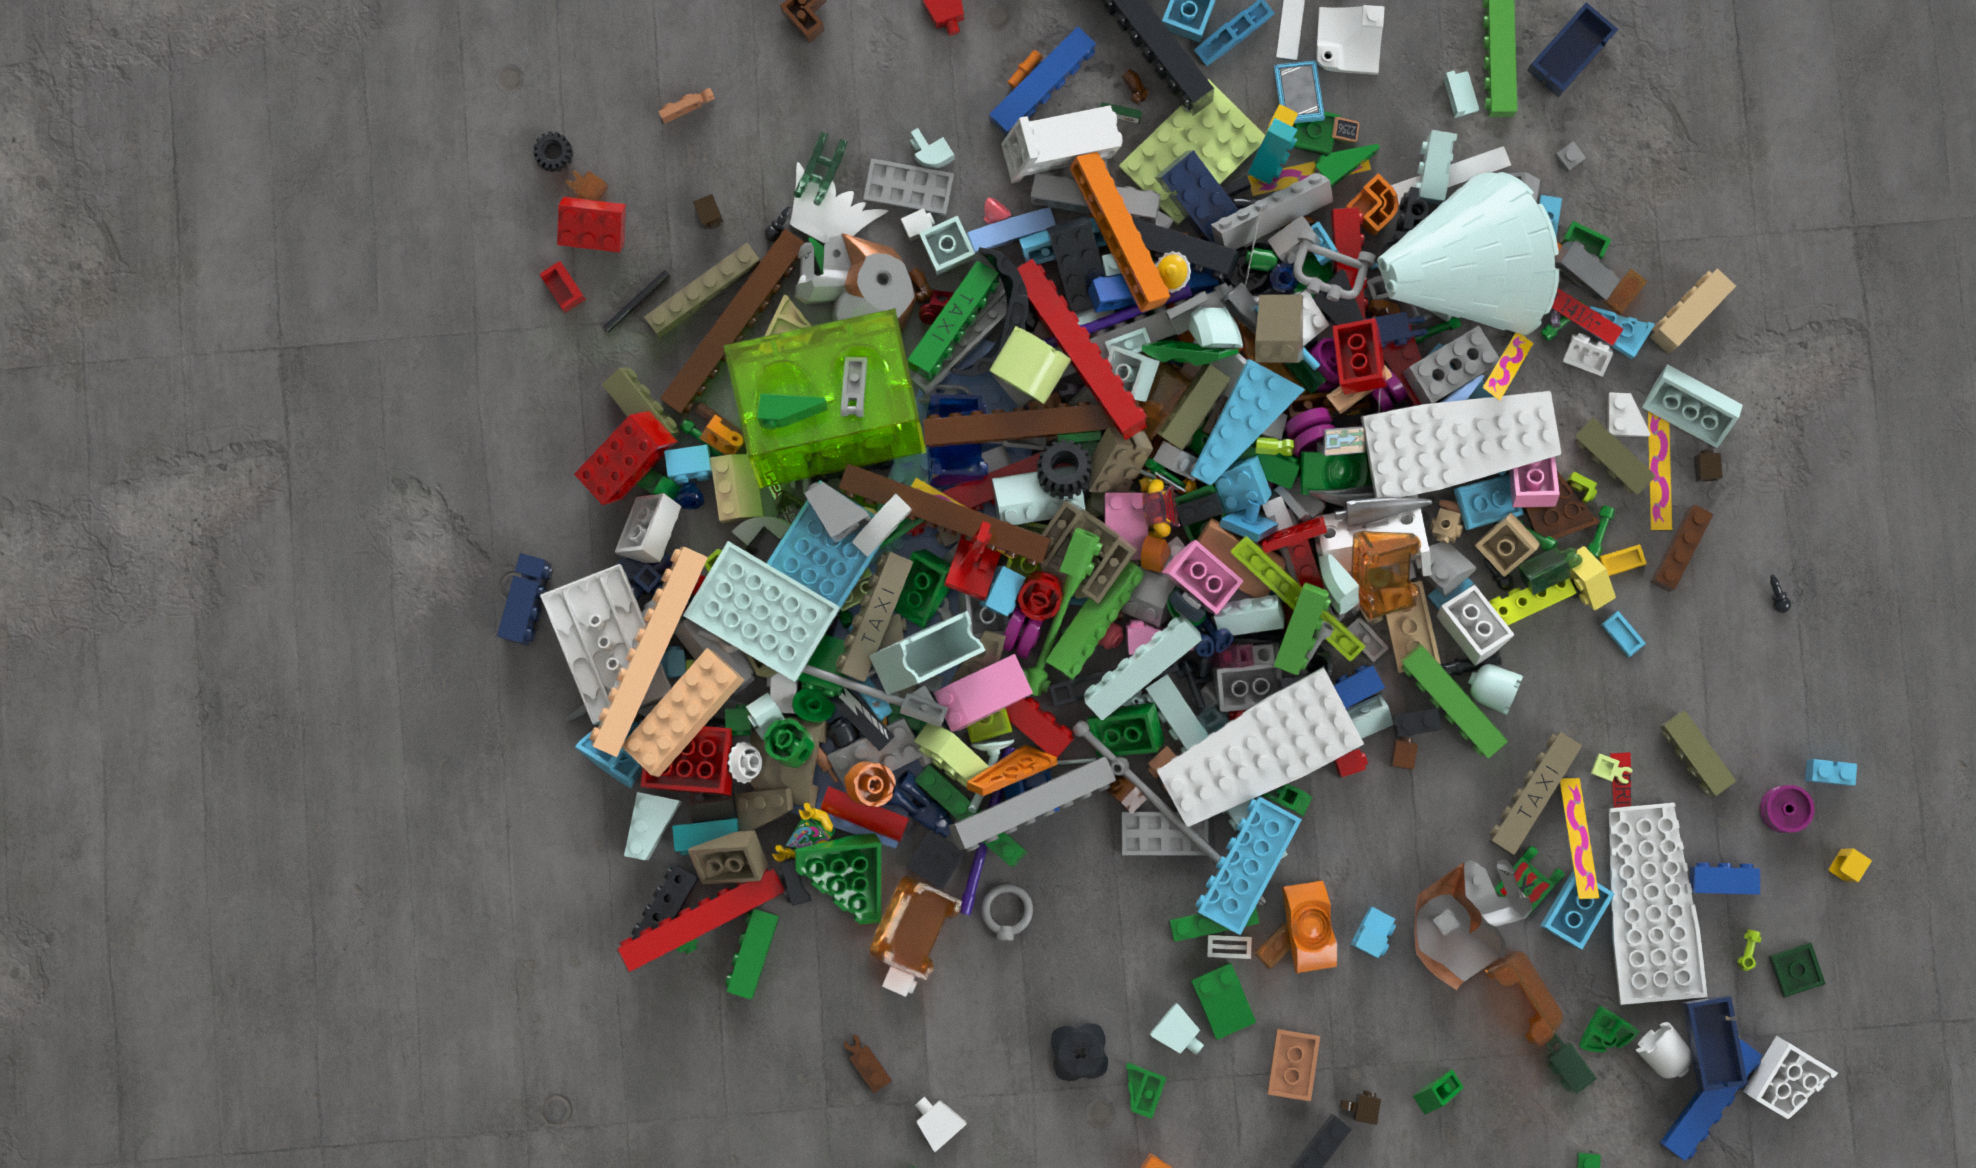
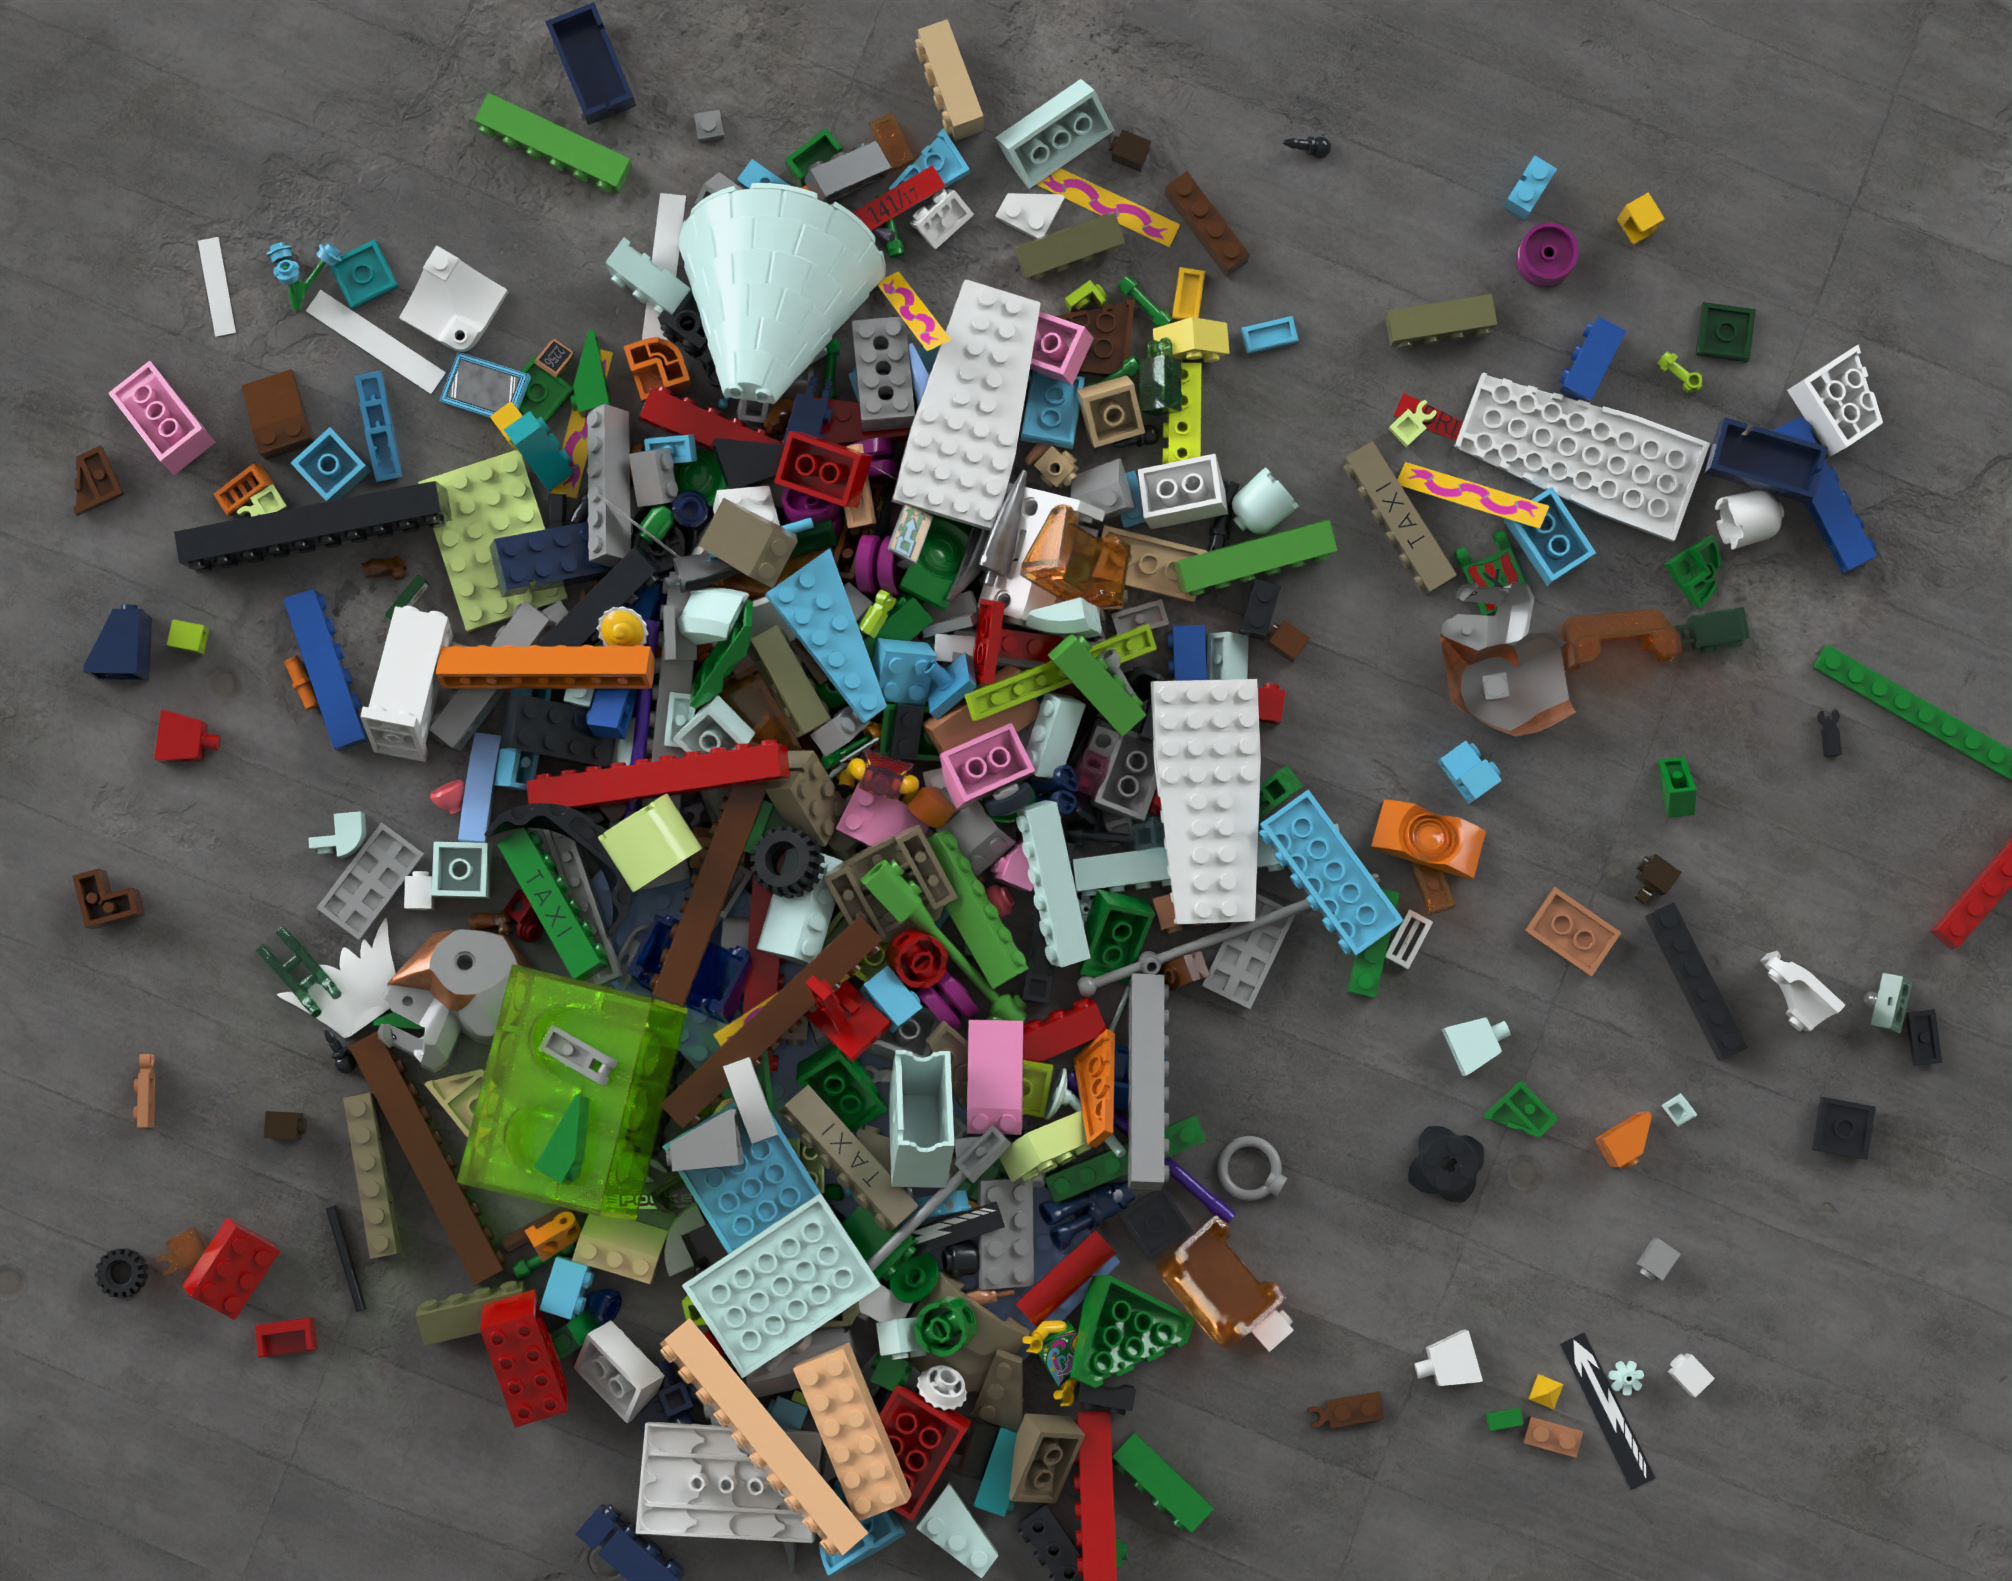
camera: 70 degrees left, 0 degrees up
(880, 789) = (1037, 1255): orange brick -> none
(1223, 1000) = (1464, 975): green slope -> none
(1314, 284) = (717, 478): light grey bar -> none
(1460, 93) = (577, 210): light aqua panel -> none

